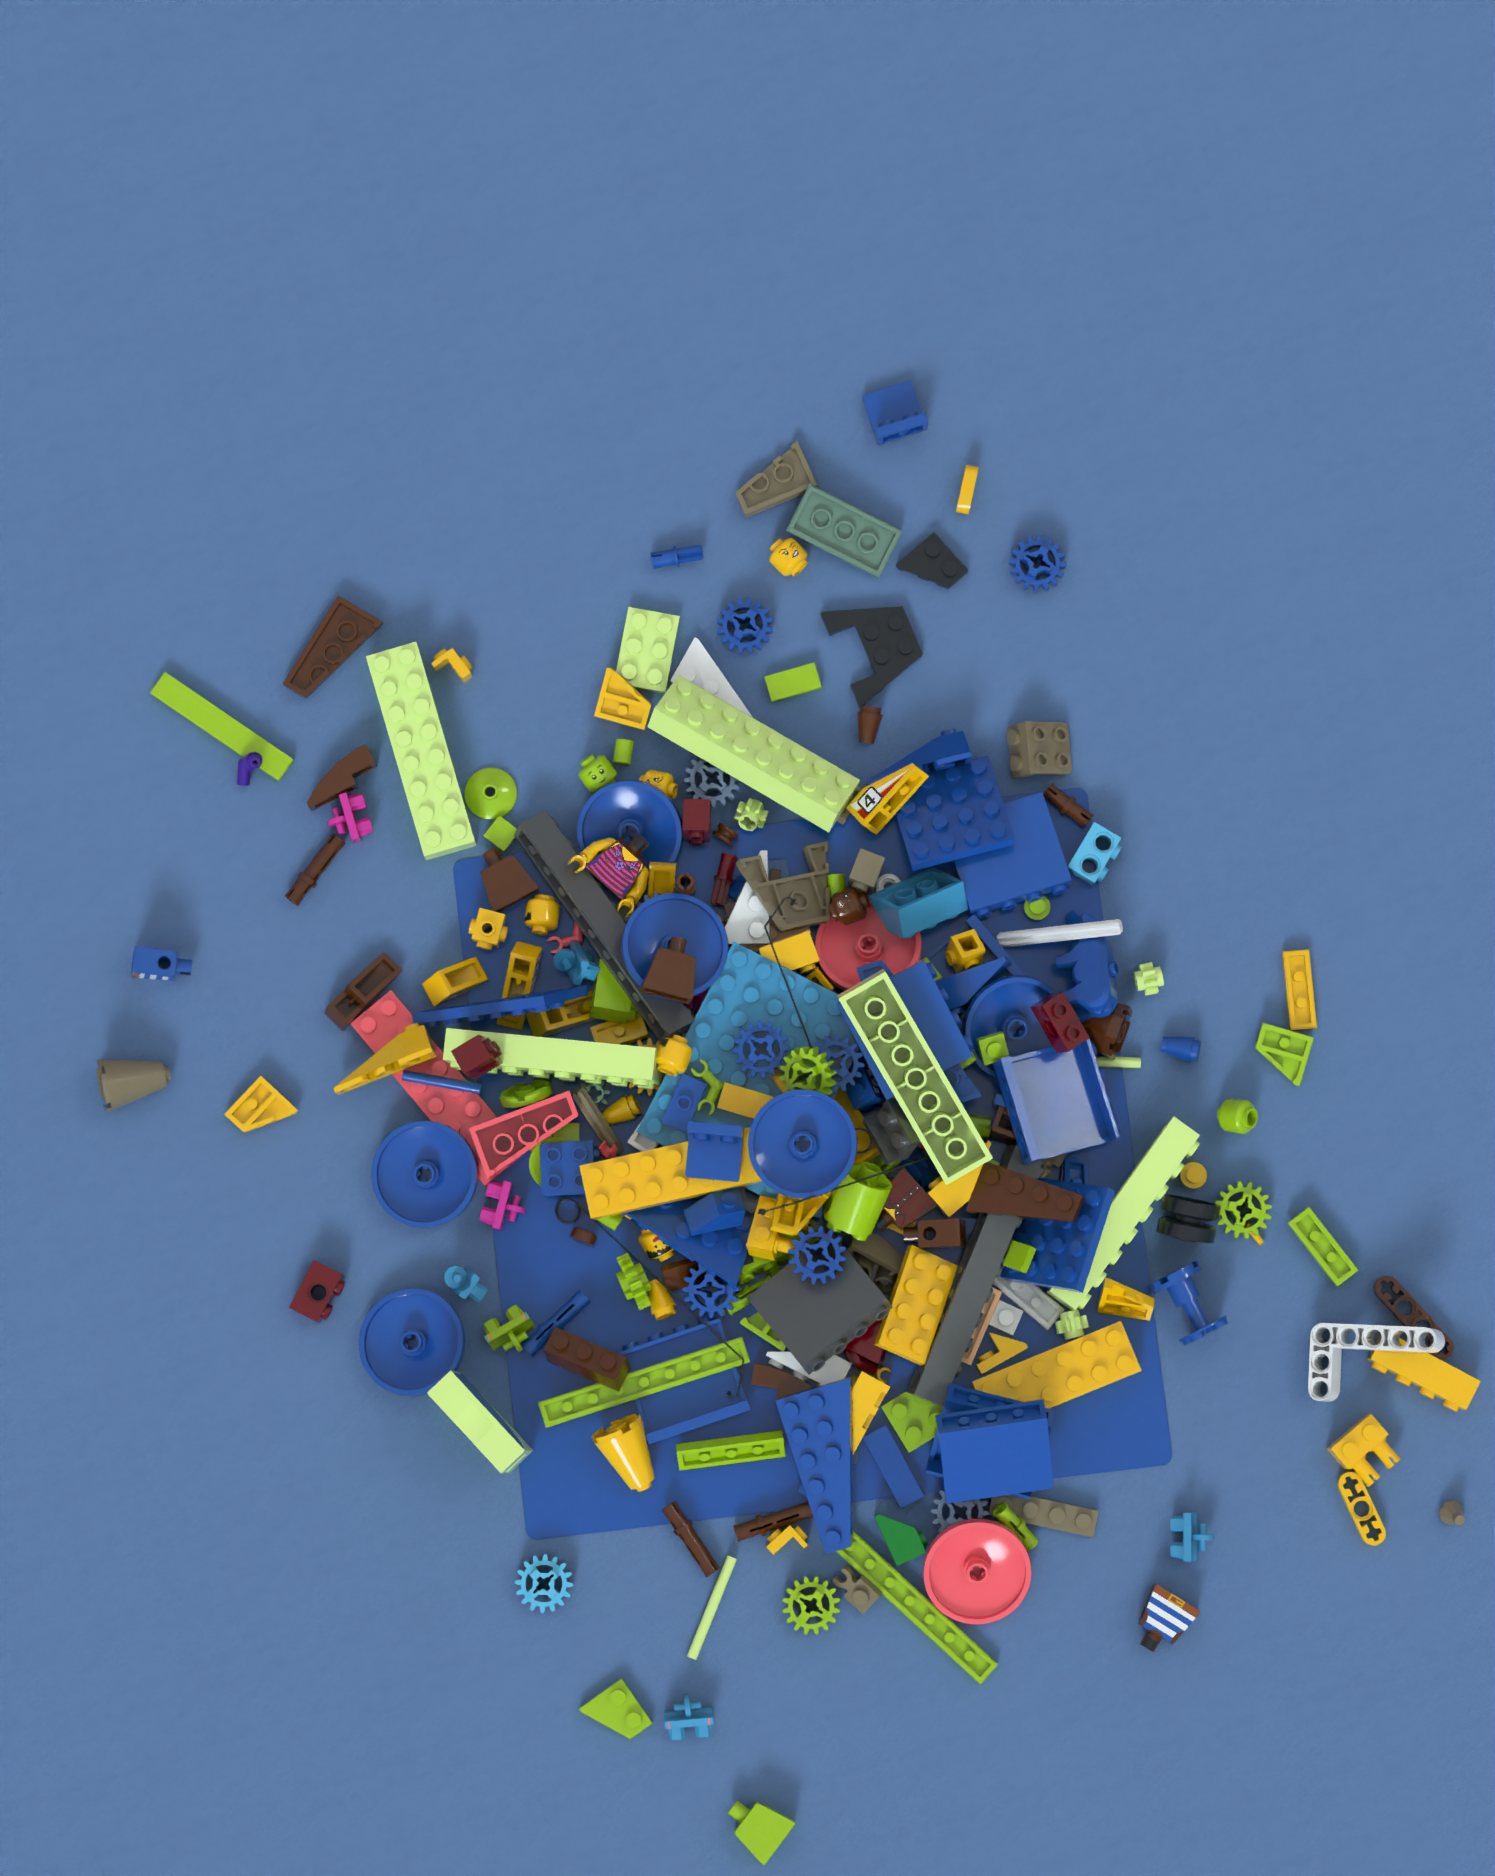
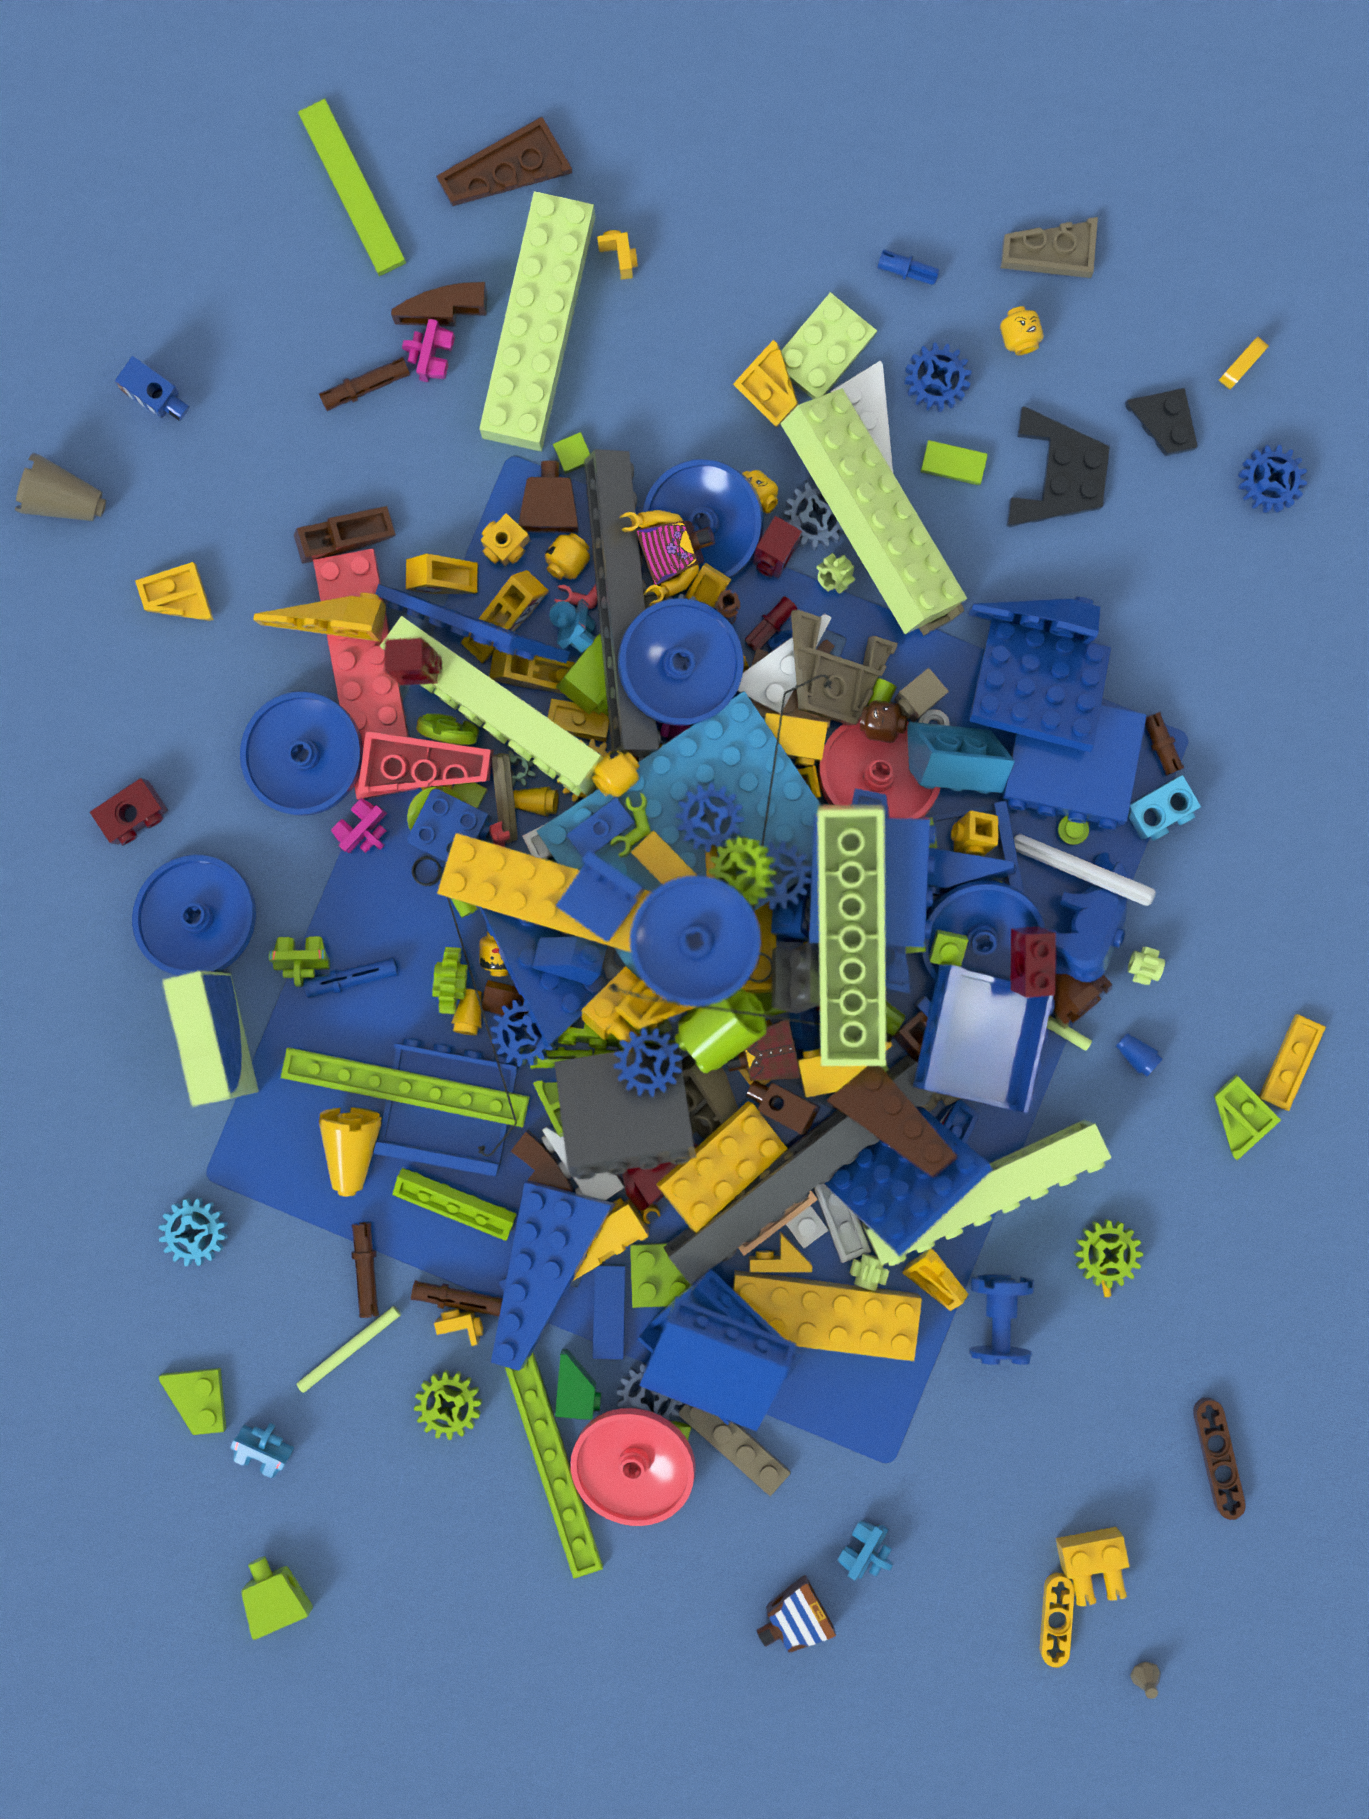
camera: 30 degrees right, 5 degrees up
(246, 765) = (353, 238): dark purple arm -> none
(440, 1081) = (370, 670): blue bar -> none
(464, 1283) = (279, 886): dark azure hips -> none
(500, 803) = (588, 420): lime dish -> none
(583, 1236) = (426, 906): reddish brown tile -> none
(587, 1359) = (359, 1032): reddish brown brick -> none
(596, 772) = (703, 442): lime head -> none
(623, 752) = (742, 437): lime hinge -> none
(671, 973) = (660, 687): reddish brown torso -> none
(725, 834) = (798, 579): reddish brown bush -> none
(844, 531) = (1093, 335): sand green tile -> none
(860, 1592) = (503, 1418): dark tan plate -> none
(868, 723) = (1007, 547): reddish brown cone -> none
(884, 798) = (983, 630): yellow slope -> none
(894, 412) = (1213, 244): blue bracket -> none
(1009, 1519) = (698, 1441): lime pin -> none
(1019, 1256) = (855, 1177): lime tile -> none
(1039, 749) = (1166, 669): dark tan bracket -> none
(1188, 1218) = (1049, 1234): black wheel -> none
(1193, 1175) = (1079, 1191): yellow plate -> none
(1237, 1116) = (1157, 1156): lime head -> none
(1322, 1246) = (1168, 1335): lime plate -> none
(1363, 1341) = (1157, 1460): white beam -> none
(1429, 1374) = (1200, 1519): yellow brick -> none

